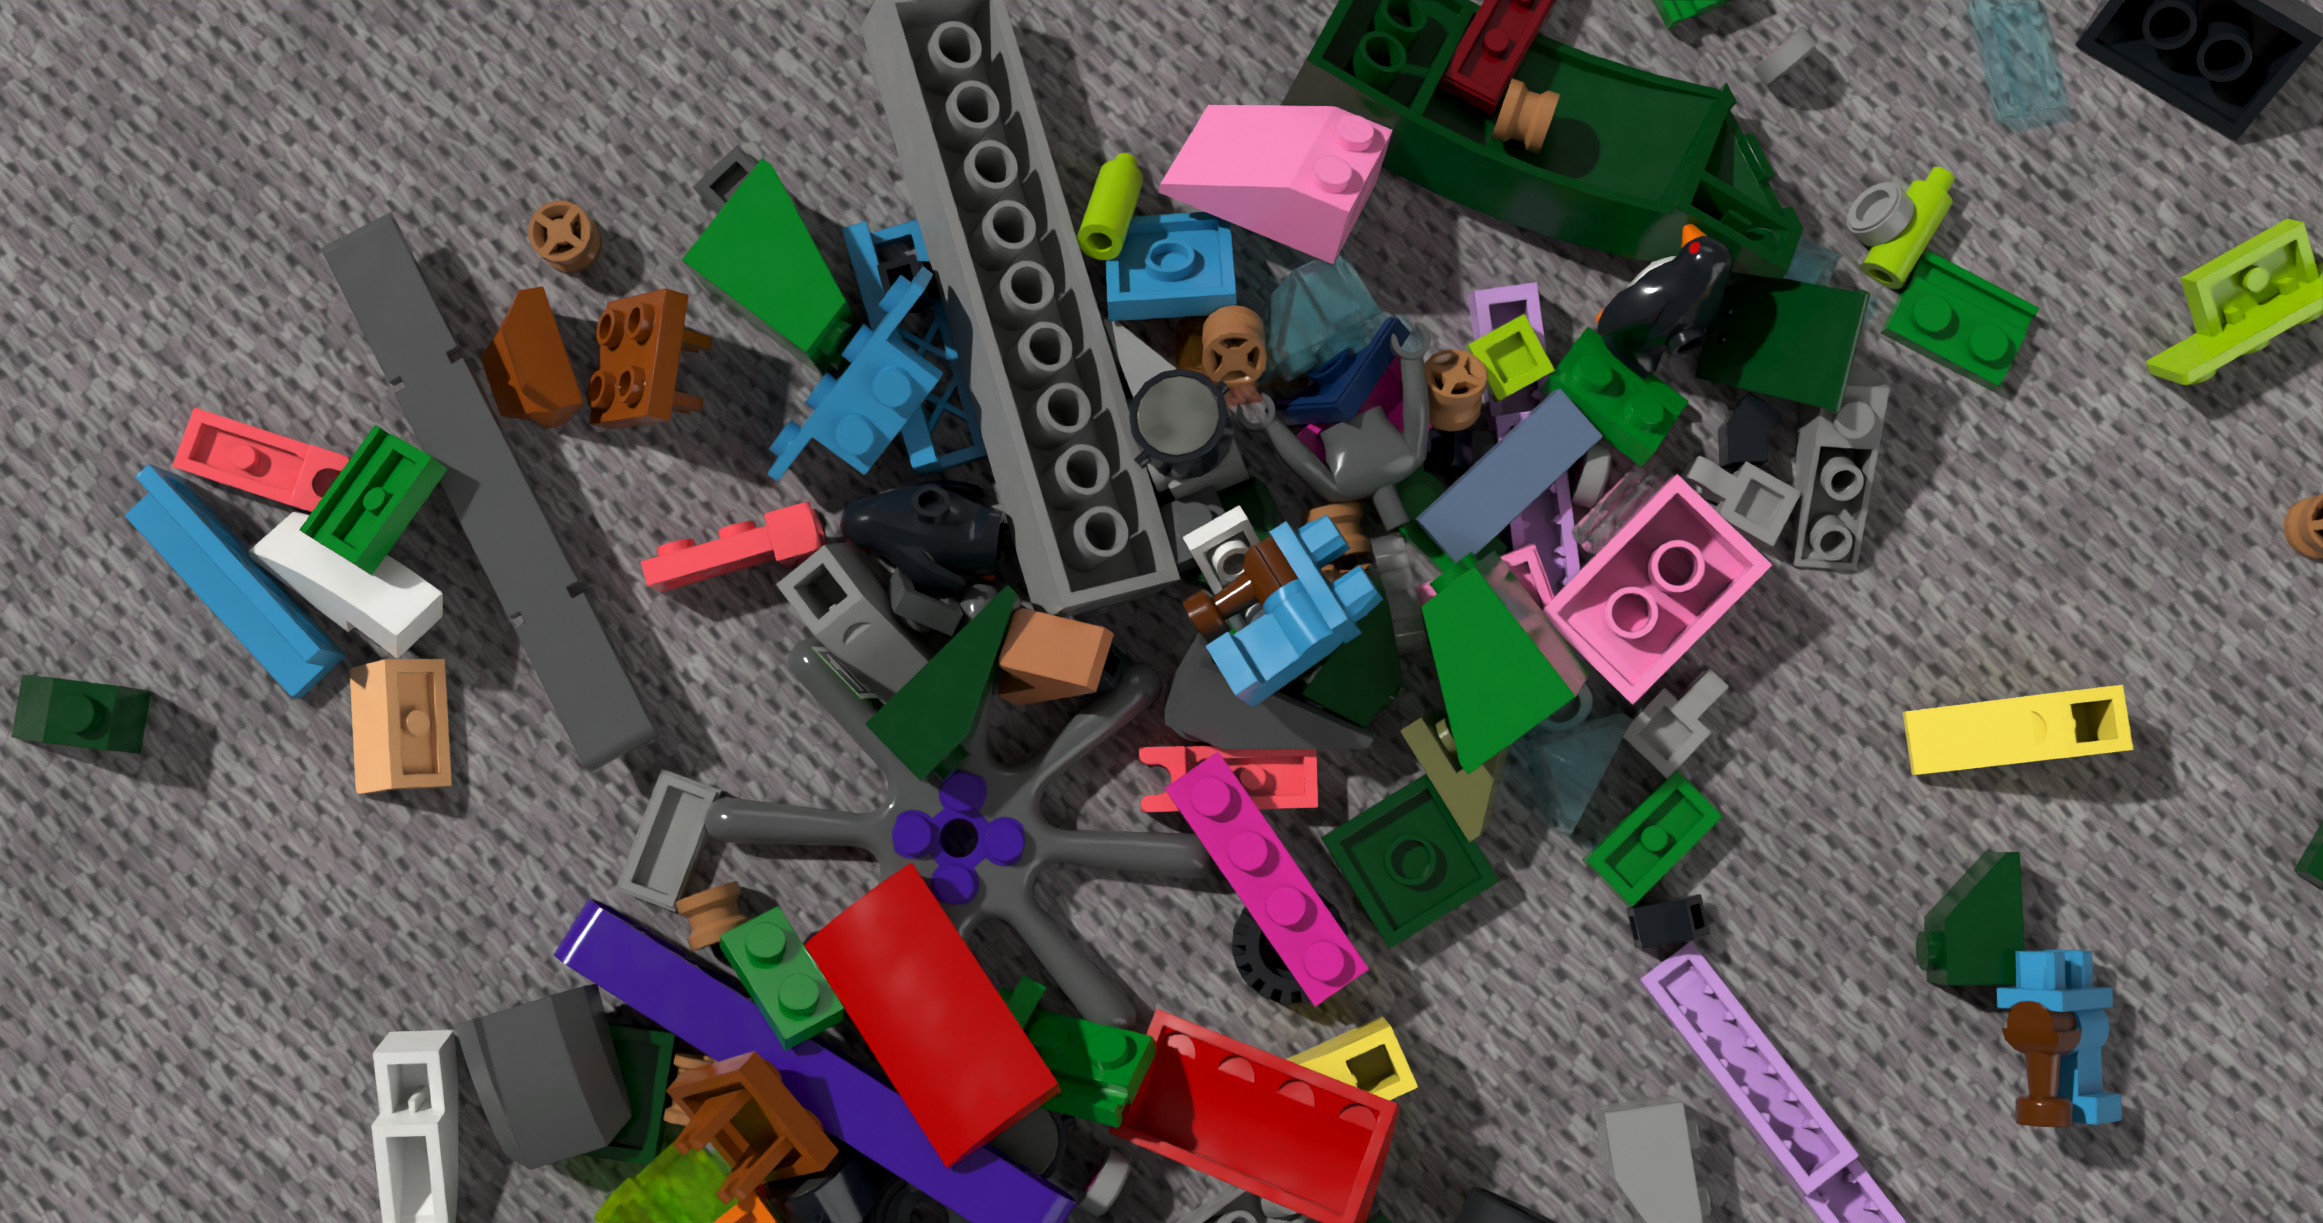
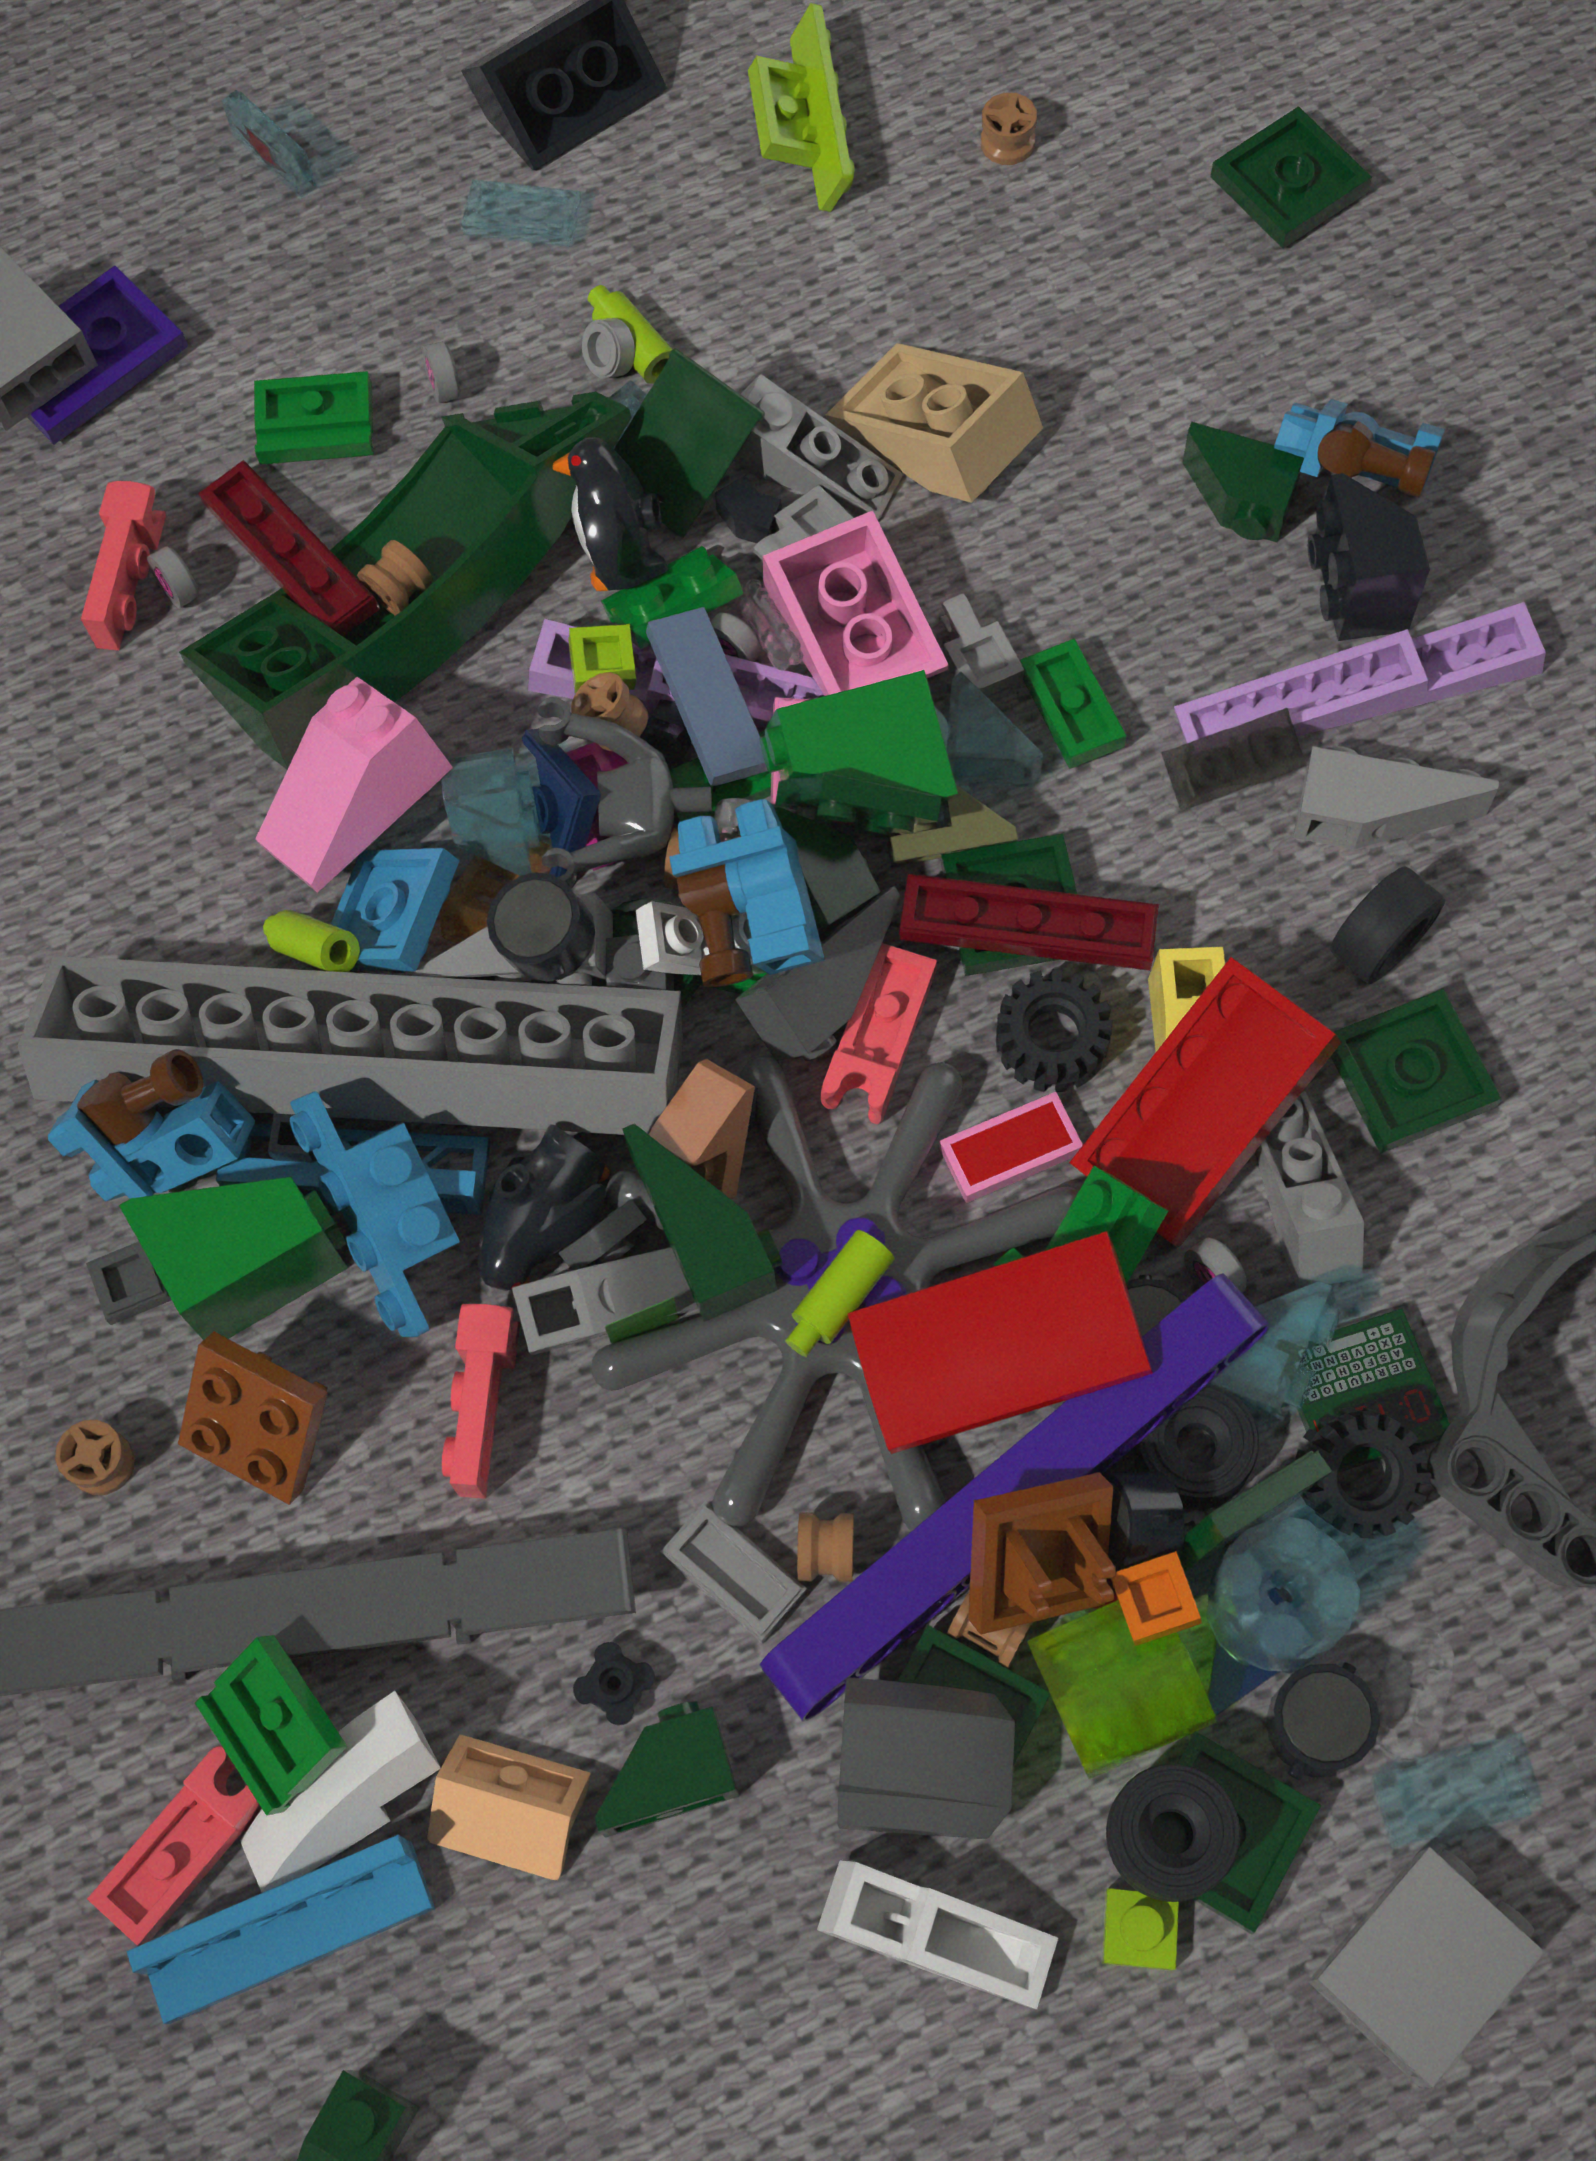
camera: 65 degrees left, 15 degrees down
(470, 859) = (670, 1771): none -> dark green slope
(530, 364) = (204, 1531): dark orange slope -> none
(545, 788) = (616, 1703): none -> black plate
(782, 978) = (911, 1484): green plate -> none
(861, 154) = (139, 1148): none -> dark azure hips
(933, 844) = (839, 1292): none -> lime cylinder
(1161, 945) = (1010, 1147): none -> tile
(1234, 362) = (504, 864): medium nougat wheel -> none
(1266, 879) = (984, 1017): dark pink plate -> none
(1387, 884) = (1029, 922): none -> dark red tile
(1415, 665) = (869, 805): none -> dark green plate
(1652, 1022) = (1233, 758): none -> clear smoke slope
(1668, 921) = (1149, 718): black piece -> none
(1923, 1090) = (1368, 561): none -> black slope
(1930, 584) = (940, 418): none -> tan slope
(1959, 320) = (727, 323): green plate -> none
(2018, 730) = (1088, 392): light yellow slope -> none

